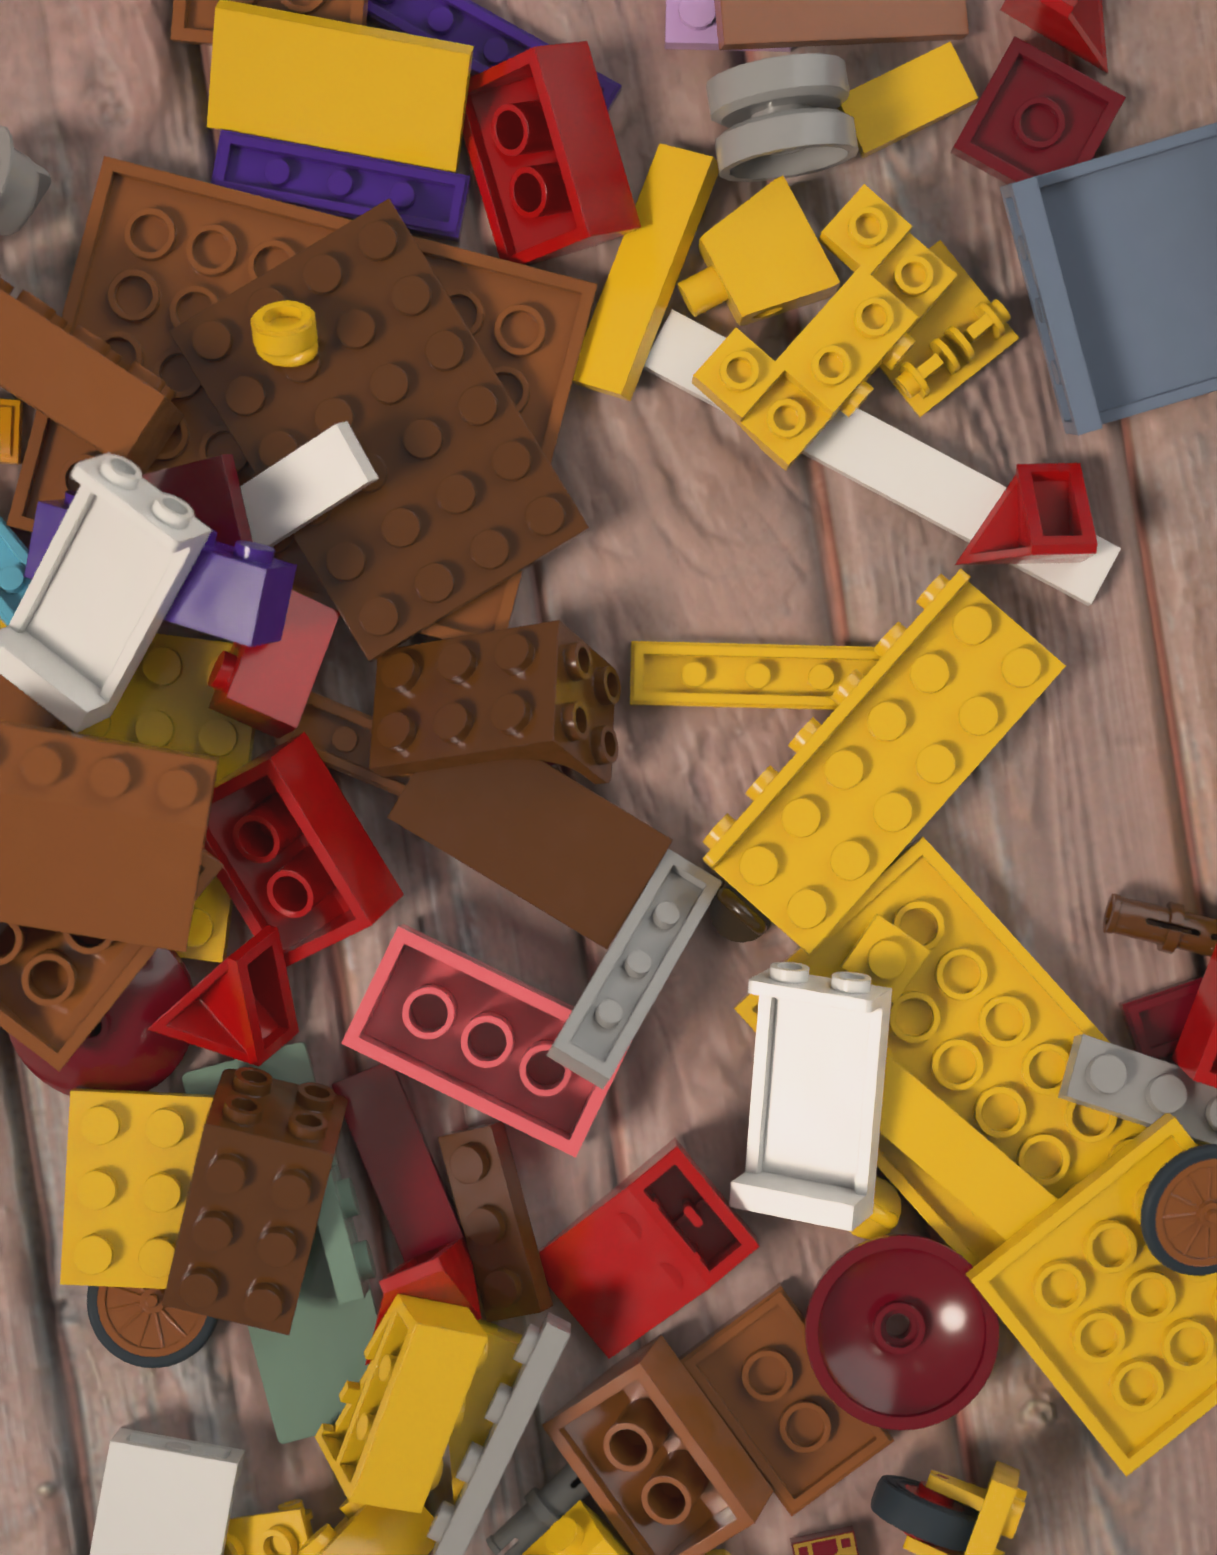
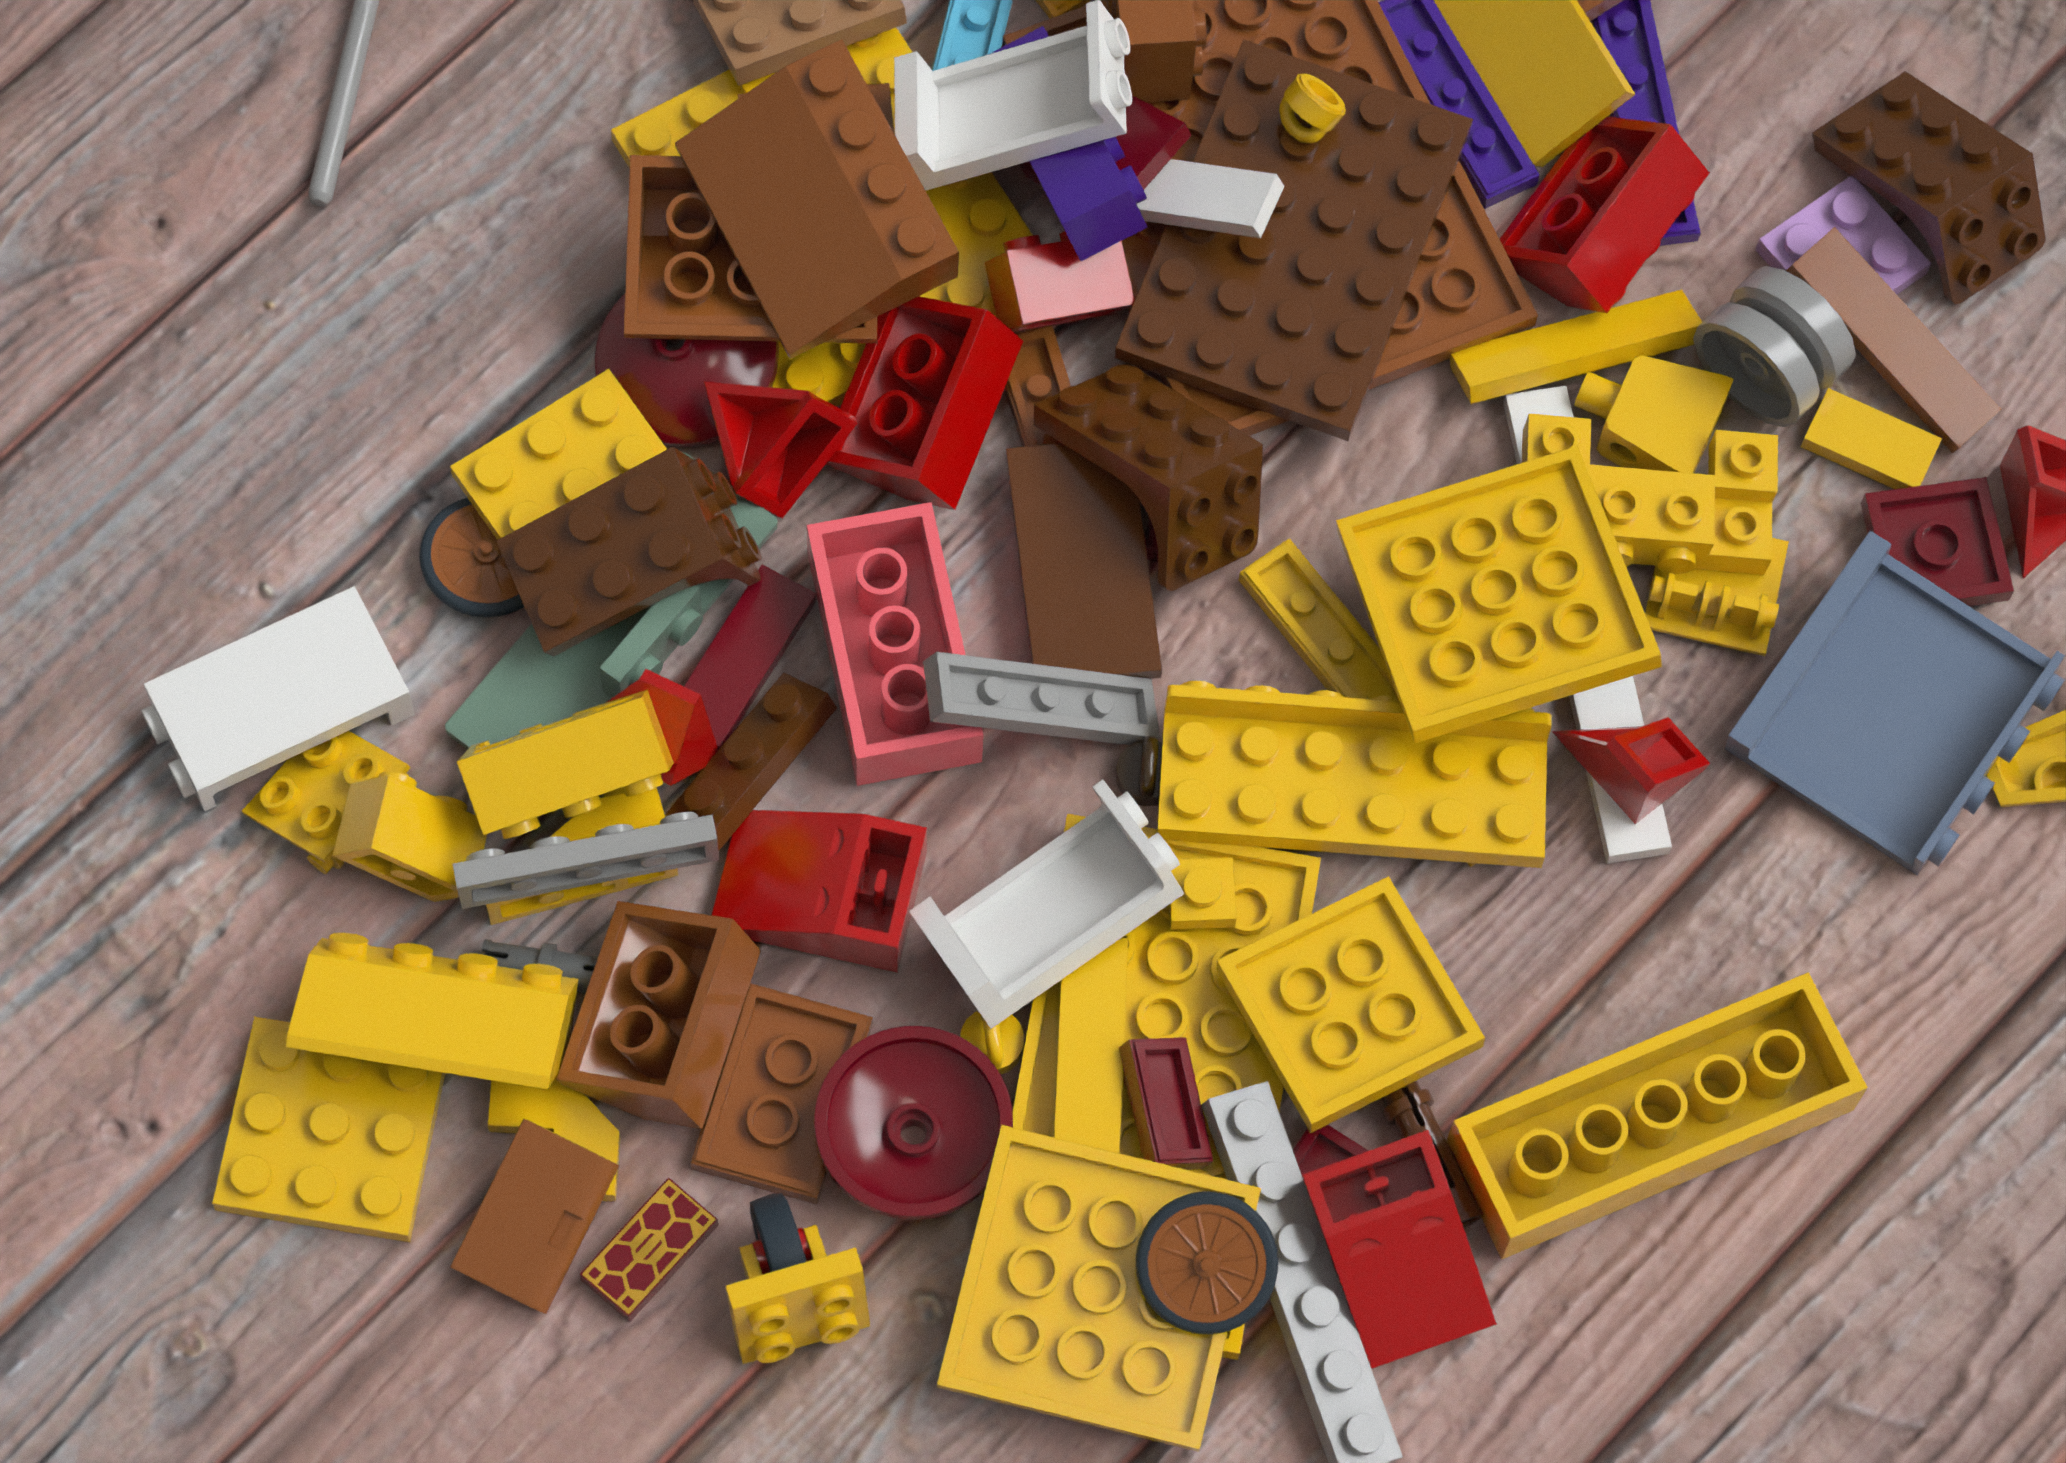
camera: 50 degrees right, 20 degrees down
(836, 534) = (1498, 594): none -> yellow plate
(1038, 1126) = (1166, 1102): none -> dark red tile
(1070, 919) = (1350, 1004): none -> yellow plate

